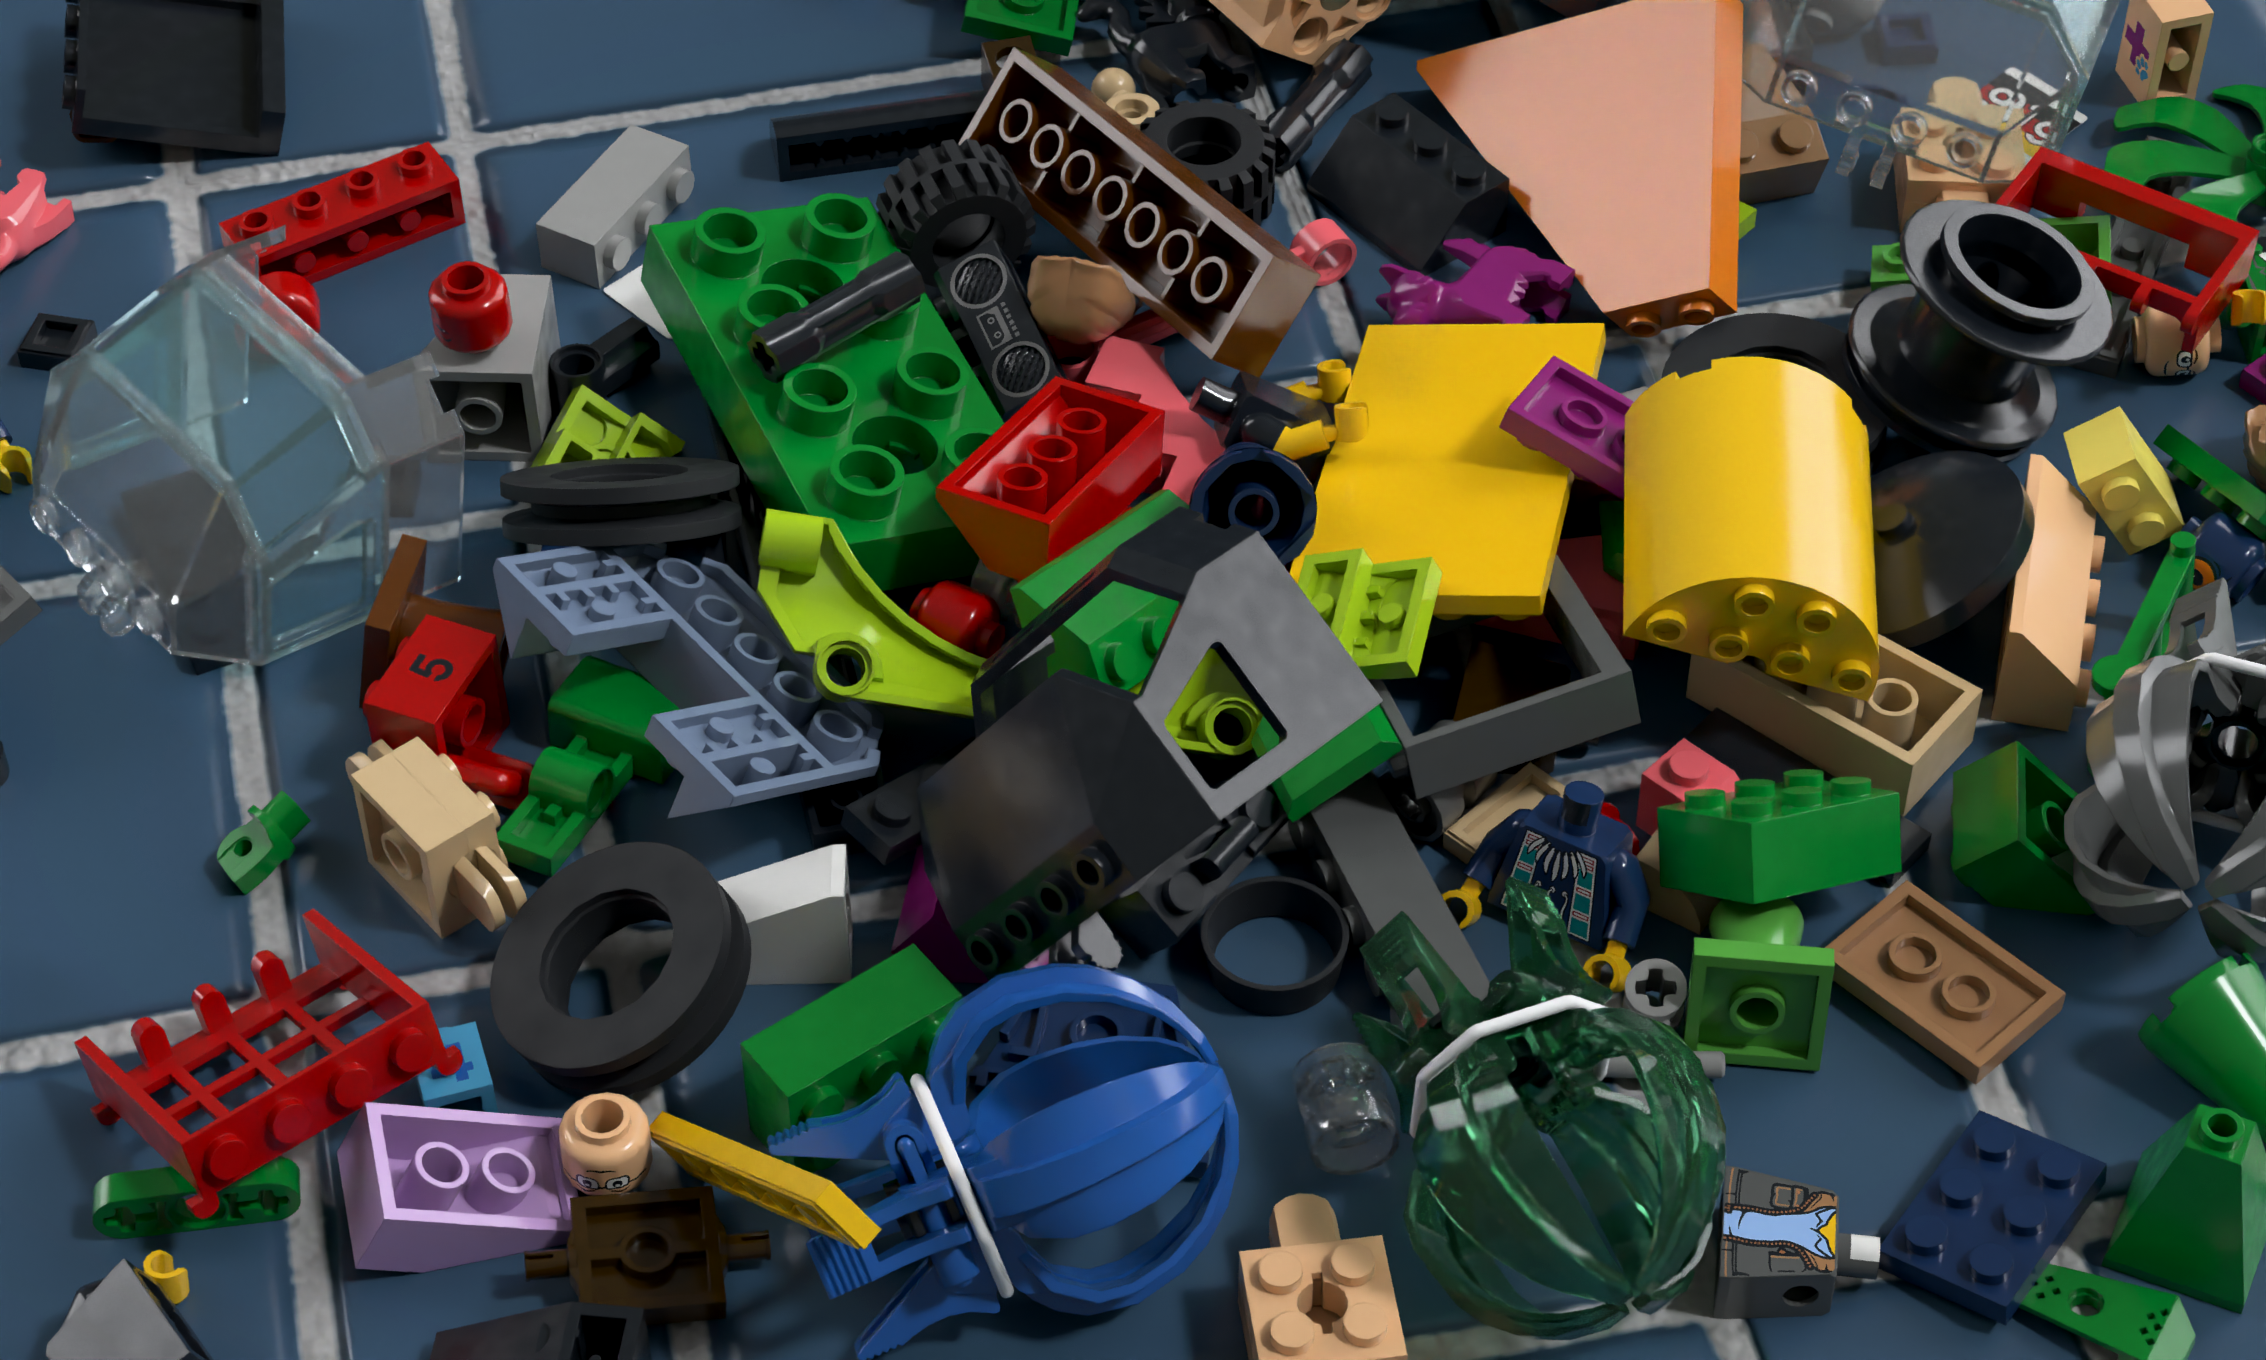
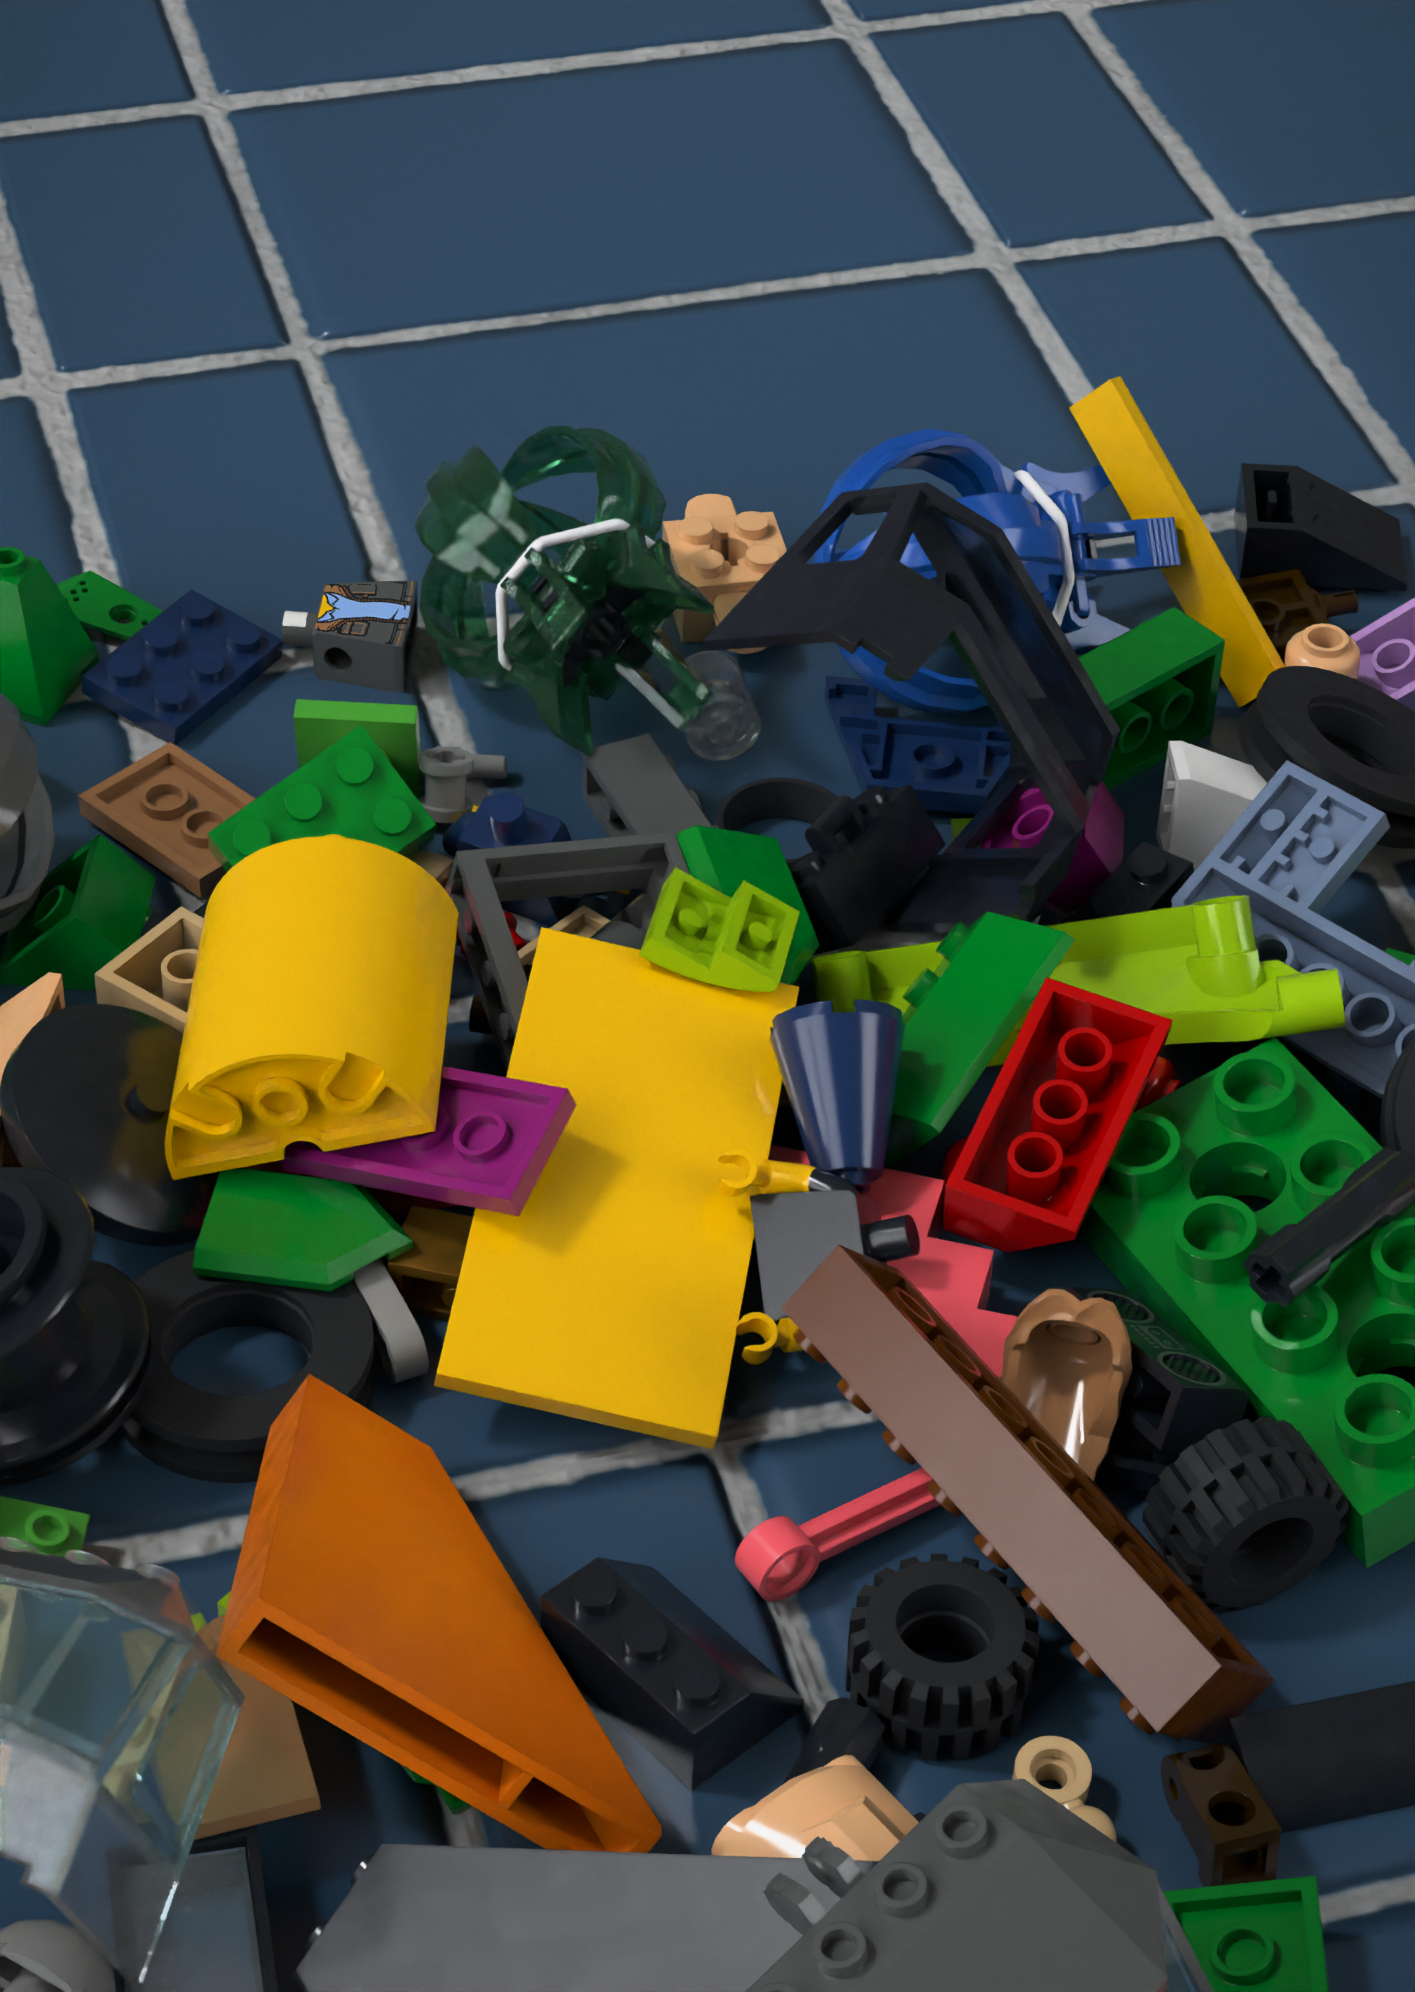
camera: 175 degrees right, 5 degrees down
(1495, 289) = (575, 1480): magenta animal -> none

